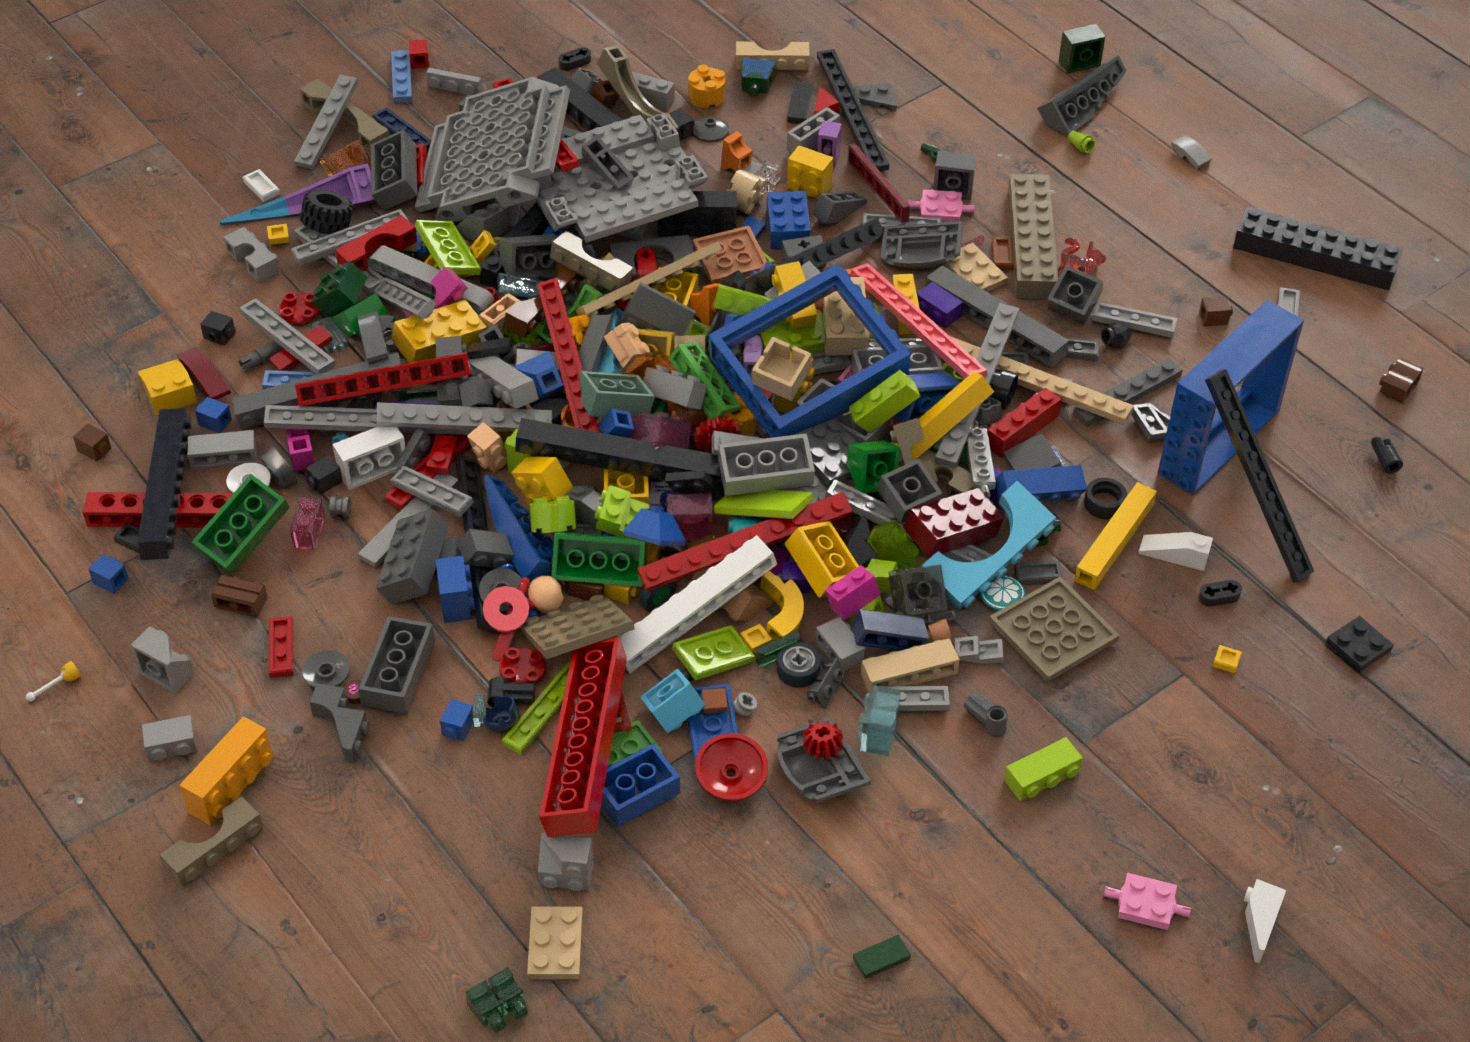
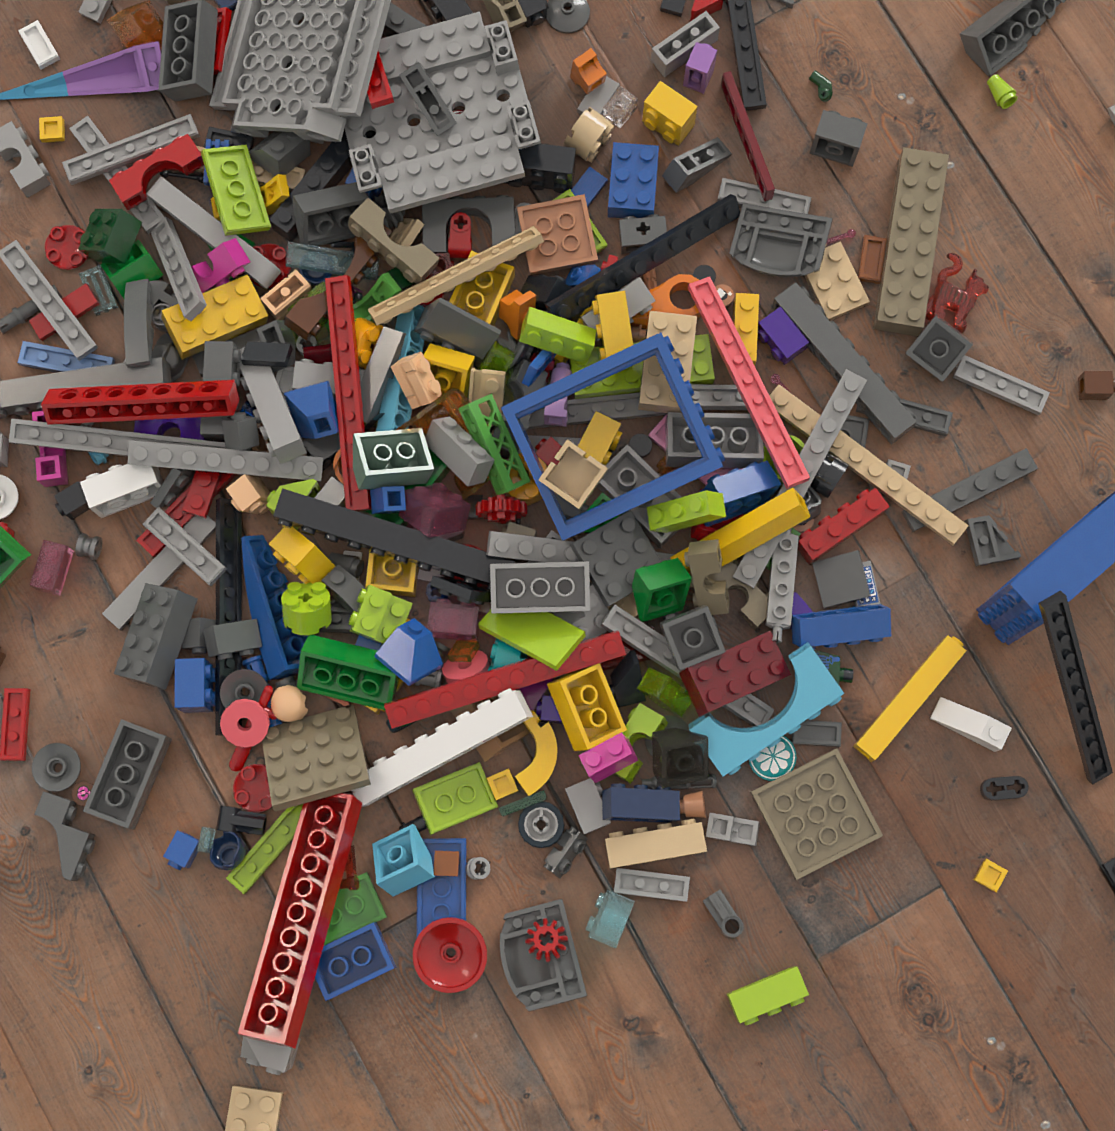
camera: 10 degrees right, 30 degrees up
(278, 468) = (26, 487): dark grey piece -> none
(326, 211) = (108, 95): black tyre -> none
(941, 205) = (815, 176): bright pink plate -> none
(1104, 485) = (919, 627): black tyre -> none
(1116, 335) = (973, 409): black rock -> none

